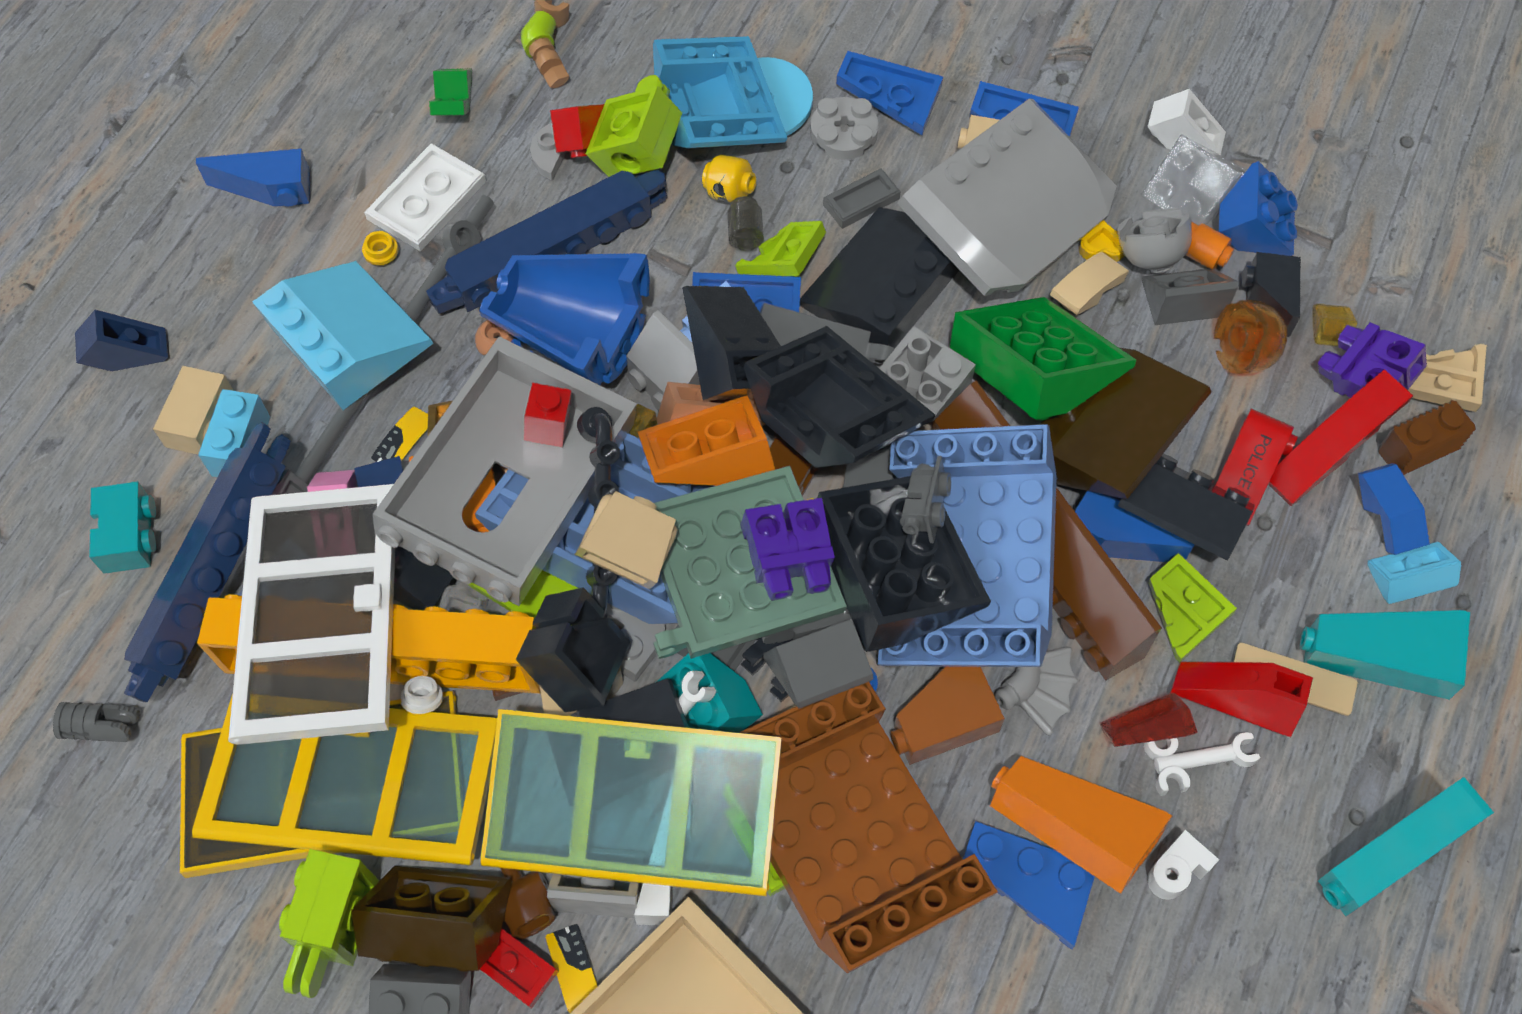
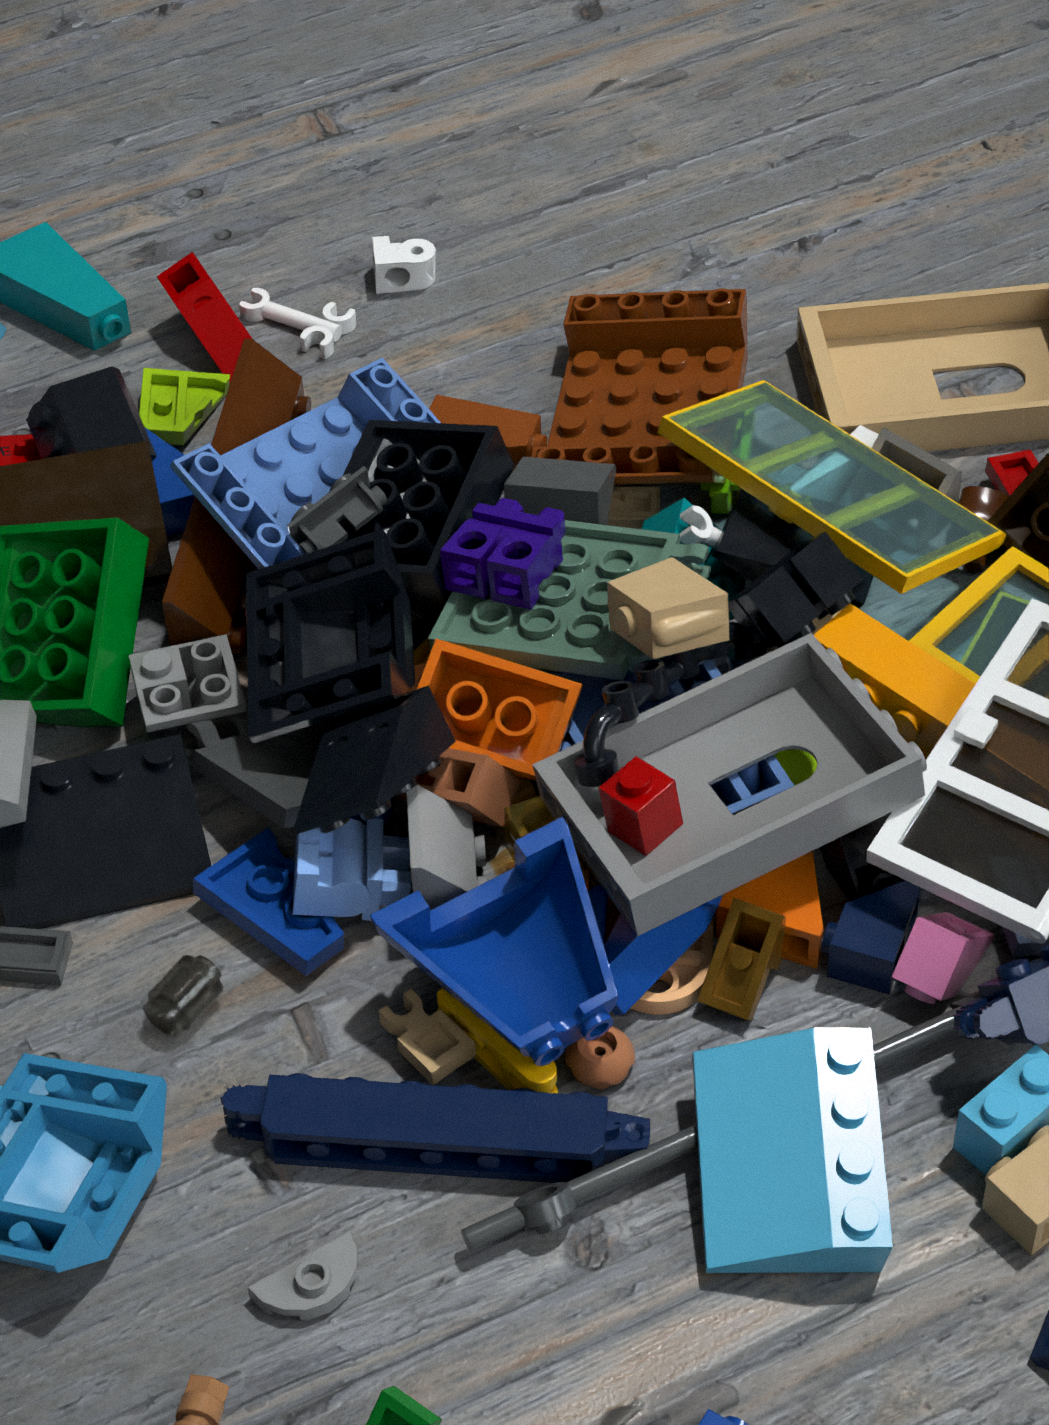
camera: 140 degrees left, 15 degrees down
(377, 241) = (660, 1261): yellow plate -> none
(402, 435) = (803, 1012): sticker -> none
(425, 197) = (539, 1324): white tile -> none
(572, 964) = (972, 461): yellow sticker -> none
(574, 128) = (246, 1252): red slope -> none
(635, 129) = (194, 1177): lime brick -> none
(728, 178) = (145, 1050): yellow head -> none
(785, 252) = (170, 925): lime wing -> none
(1034, 878) = (521, 325): blue wing -> none
(1080, 819) = (447, 312): orange slope -> none
(1153, 721) = (282, 336): clear red slope -> none
(1328, 688) = (158, 323): tan piece -> none
(1404, 847) = (222, 177): teal slope -> none

